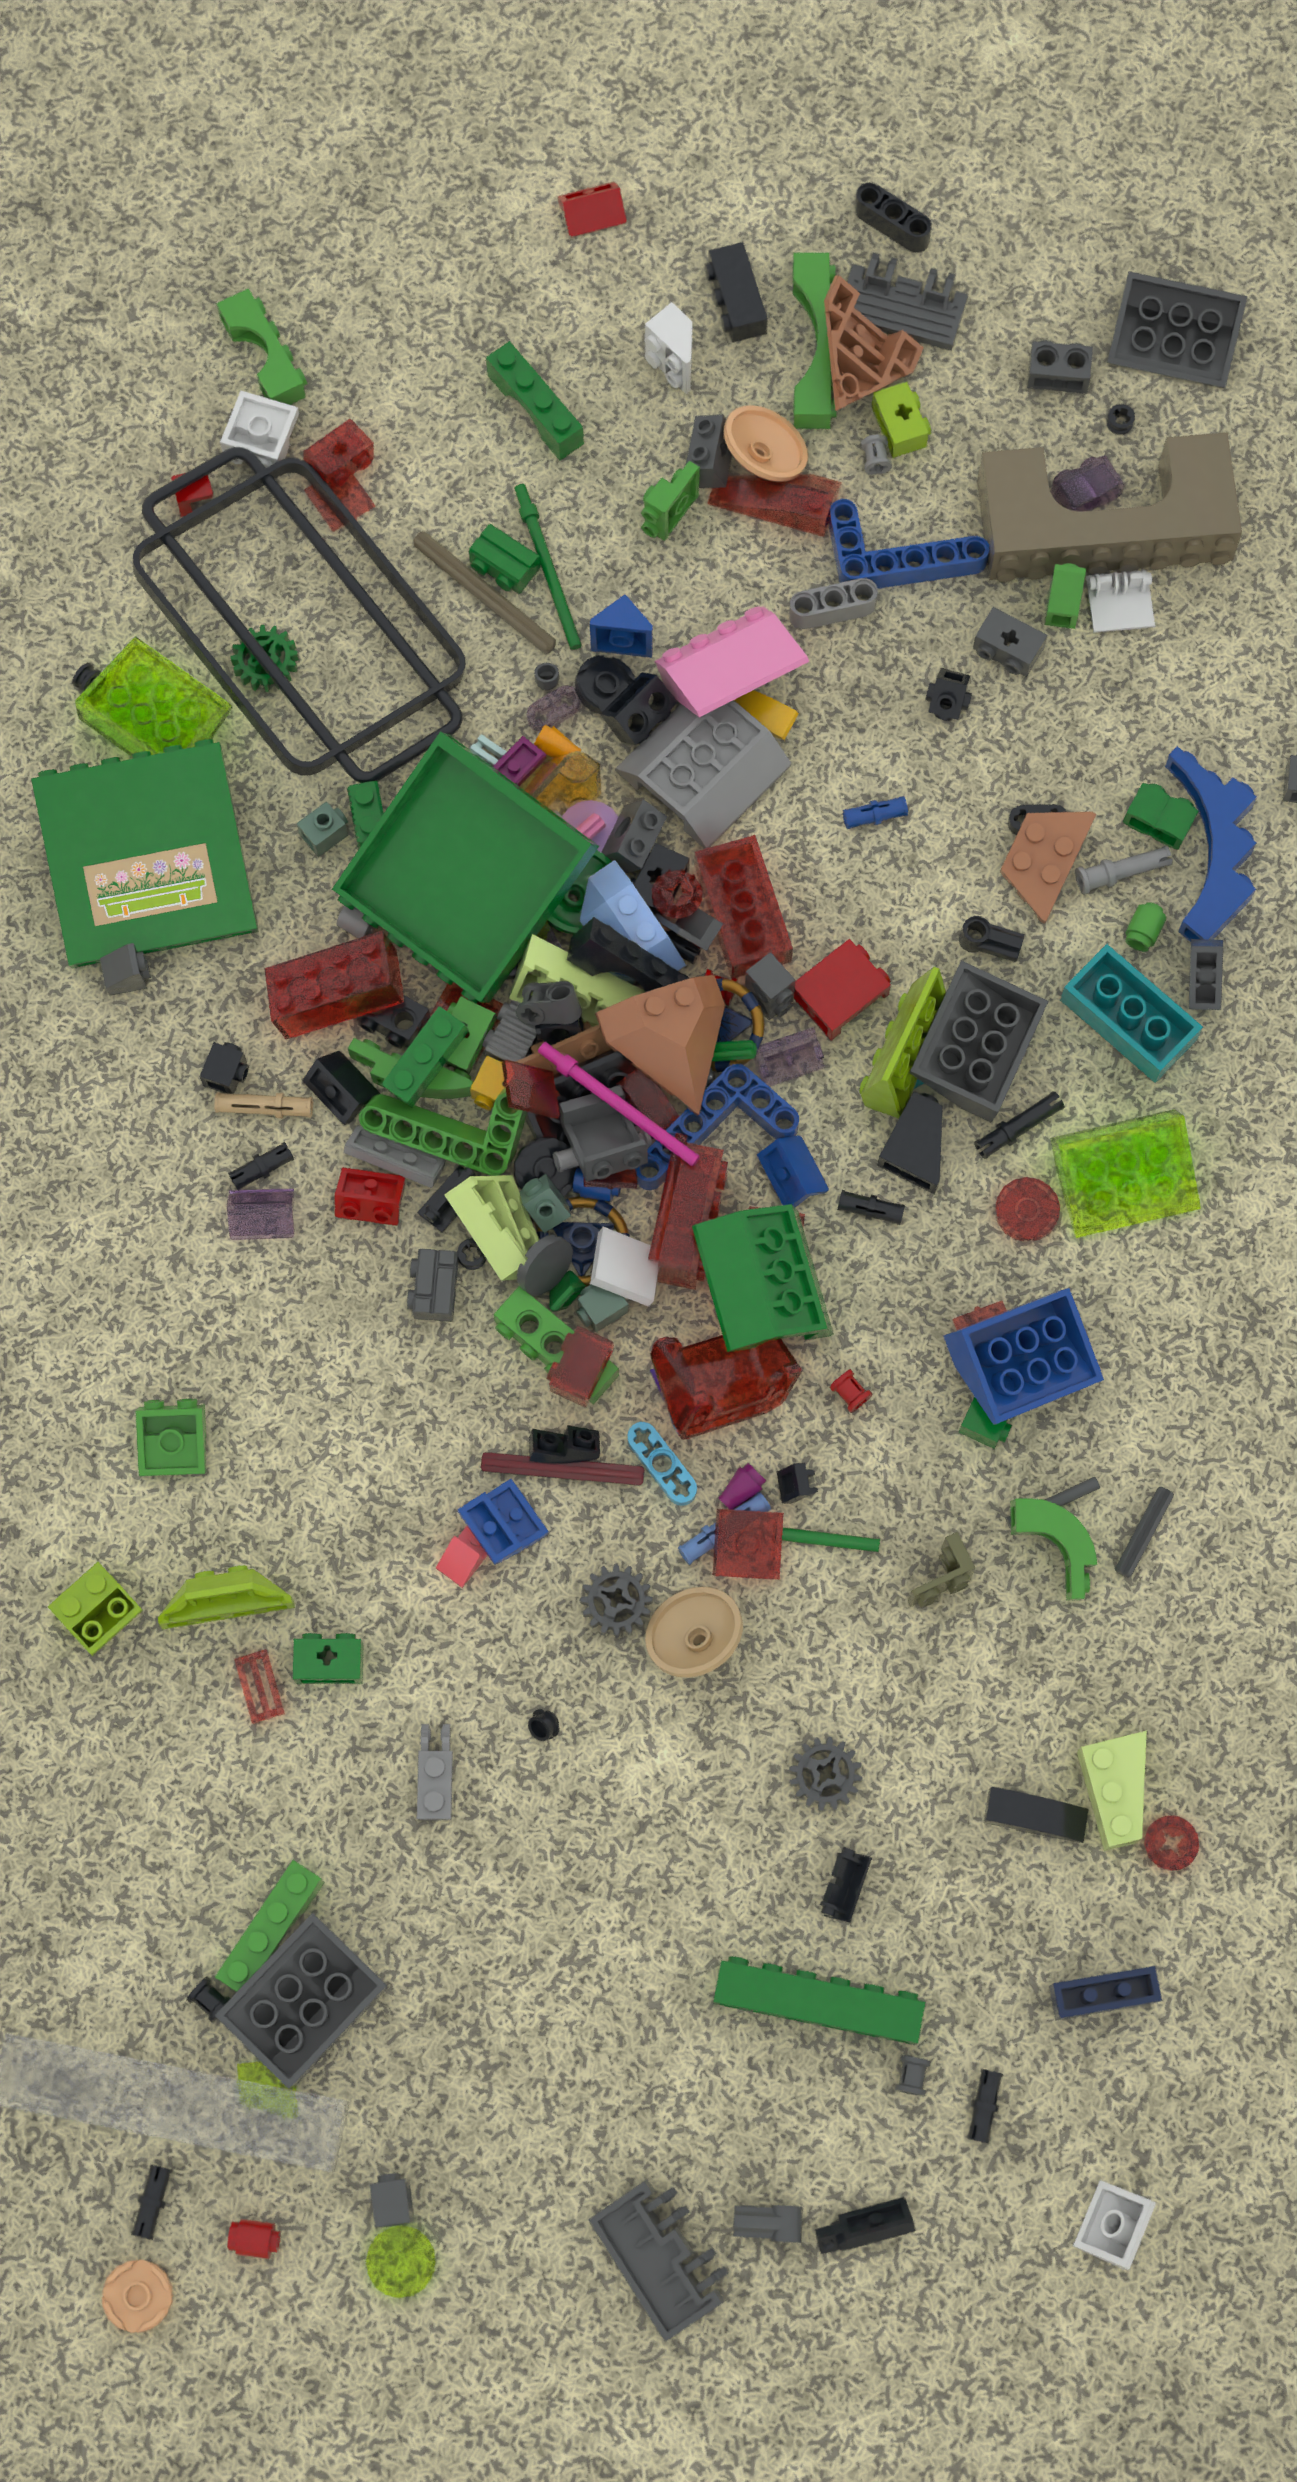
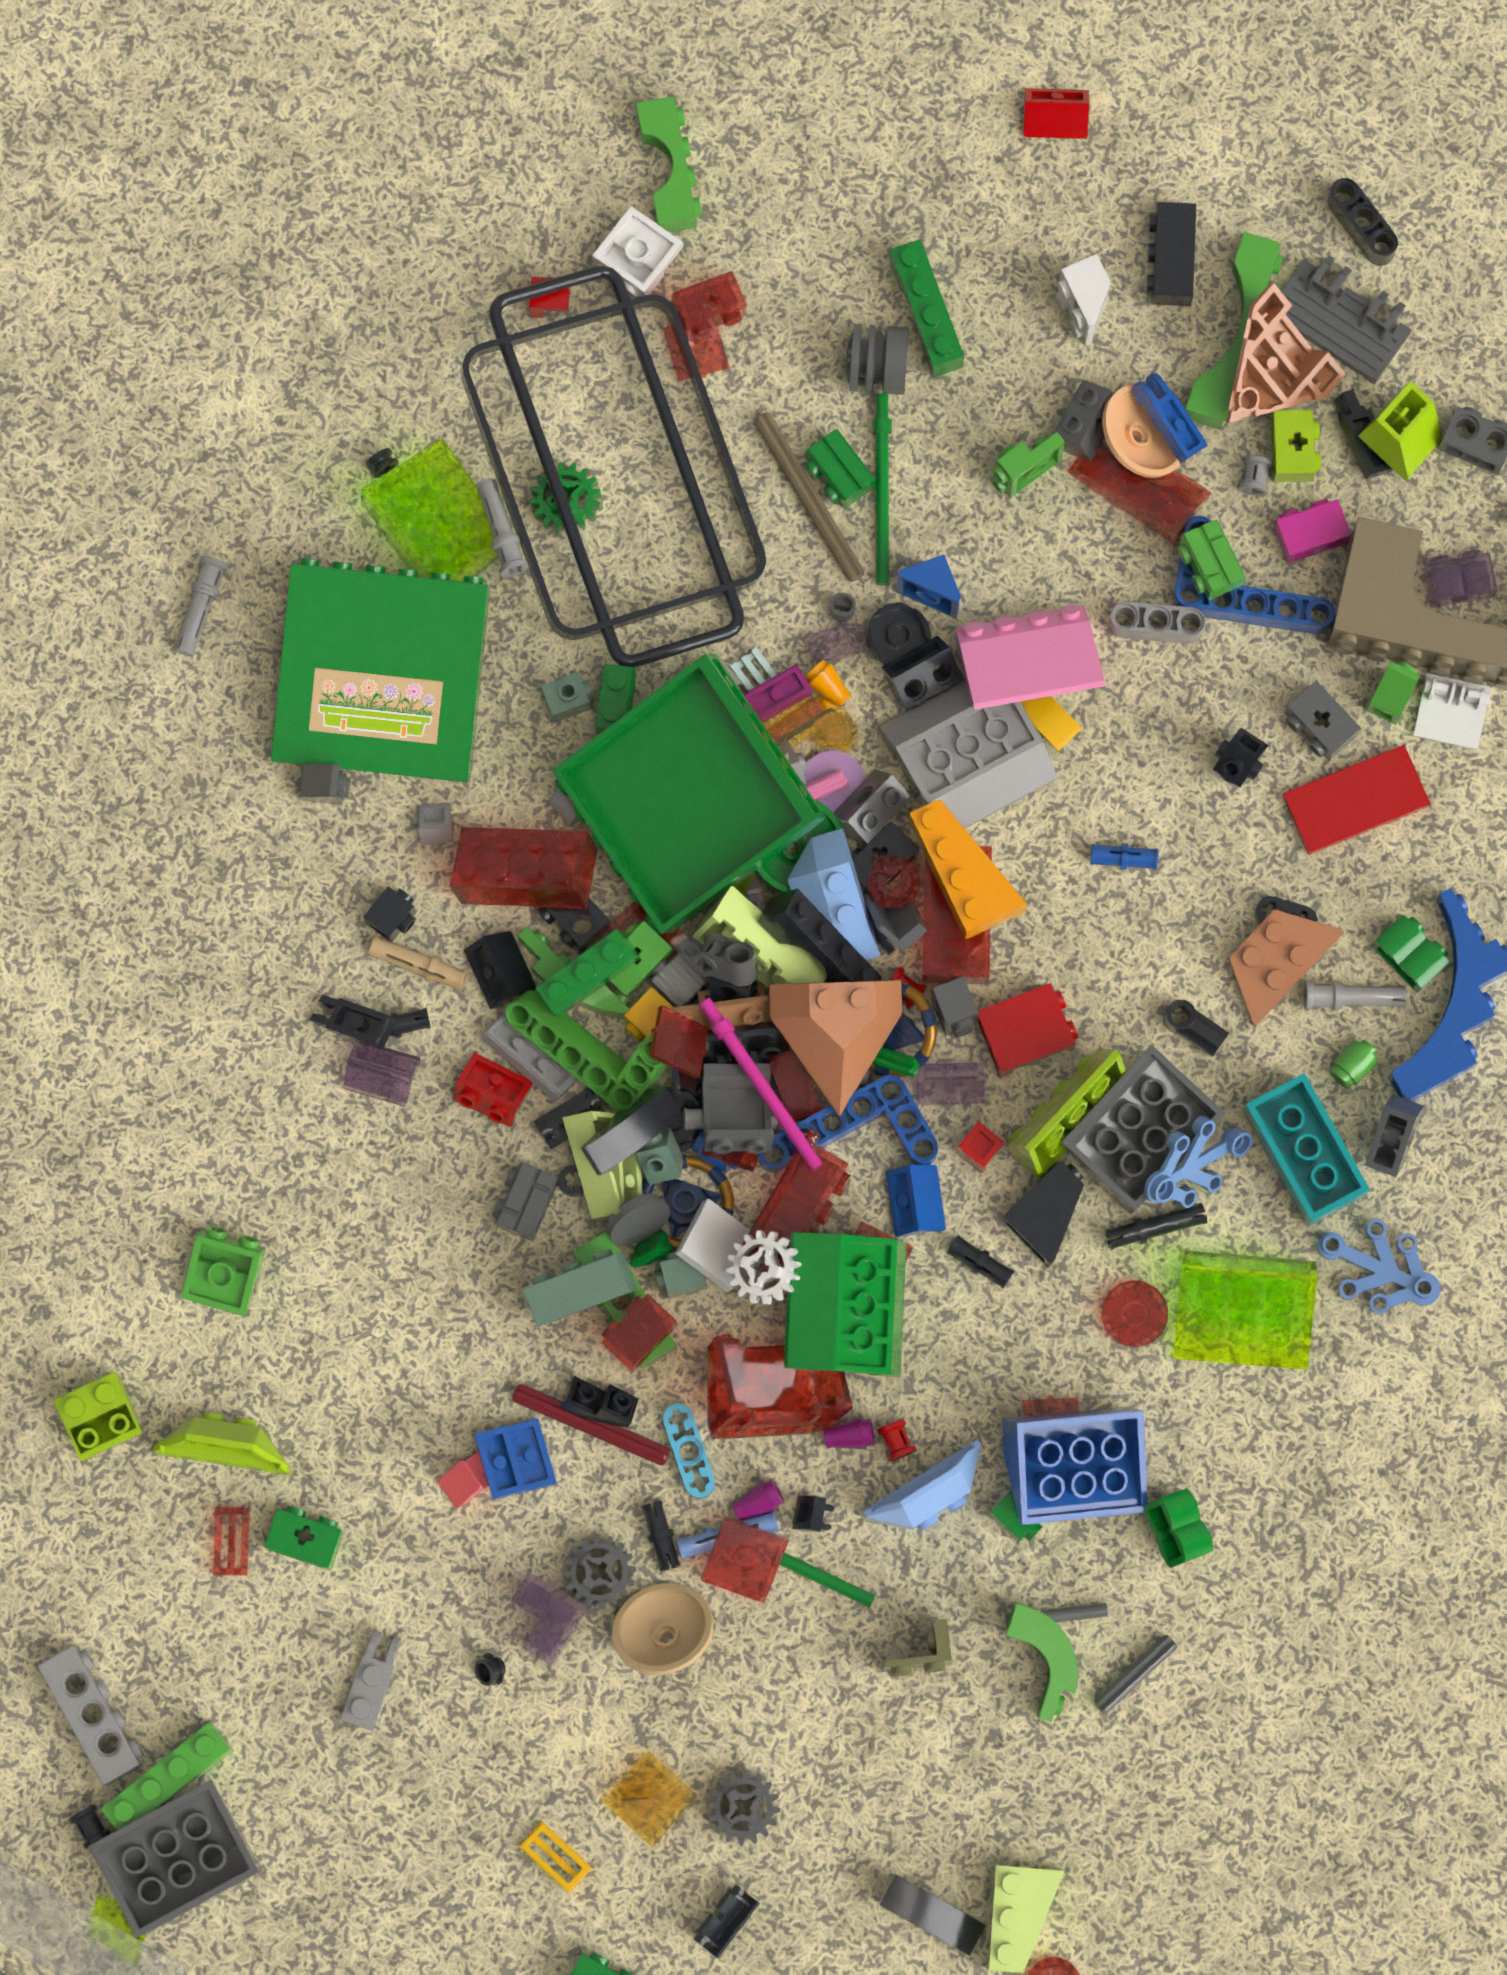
camera: 20 degrees right, 5 degrees up
(133, 1862) = (57, 1674): none -> light grey brick
(222, 704) = (504, 541): none -> light grey pin
(222, 1172) = (355, 1022): none -> black hinge
(239, 978) = (435, 824): none -> light grey slope
(507, 453) = (878, 359): none -> dark grey wheel
(512, 1183) = (631, 1129): none -> black slope
(512, 1341) = (579, 1287): none -> sand green wedge
(589, 1651) = (557, 1615): none -> clear purple brick
(662, 1549) = (661, 1536): none -> black pin
(678, 1251) = (758, 1279): none -> white gear
(690, 1892) = (577, 1877): none -> yellow tile
(735, 1795) = (650, 1799): none -> clear yellow slope
(739, 861) = (968, 878): none -> light orange wedge
(783, 425) = (1169, 417): none -> blue hinge
(806, 1400) = (851, 1434): none -> magenta cone
(835, 1104) = (979, 1147): none -> red panel
(864, 530) = (1211, 559): none -> bright green brick
(898, 1428) = (929, 1493): none -> light blue wedge
(942, 485) = (1312, 530): none -> dark pink brick
(958, 393) = (1353, 421): none -> black hinge
(993, 375) = (1404, 430): none -> lime slope
(1015, 1078) = (1162, 1184): none -> medium blue plant
(1063, 701) = (1356, 799): none -> red tile
(1137, 1385) = (1178, 1527): none -> green brick
(1237, 1098) = (1384, 1271): none -> medium blue plant

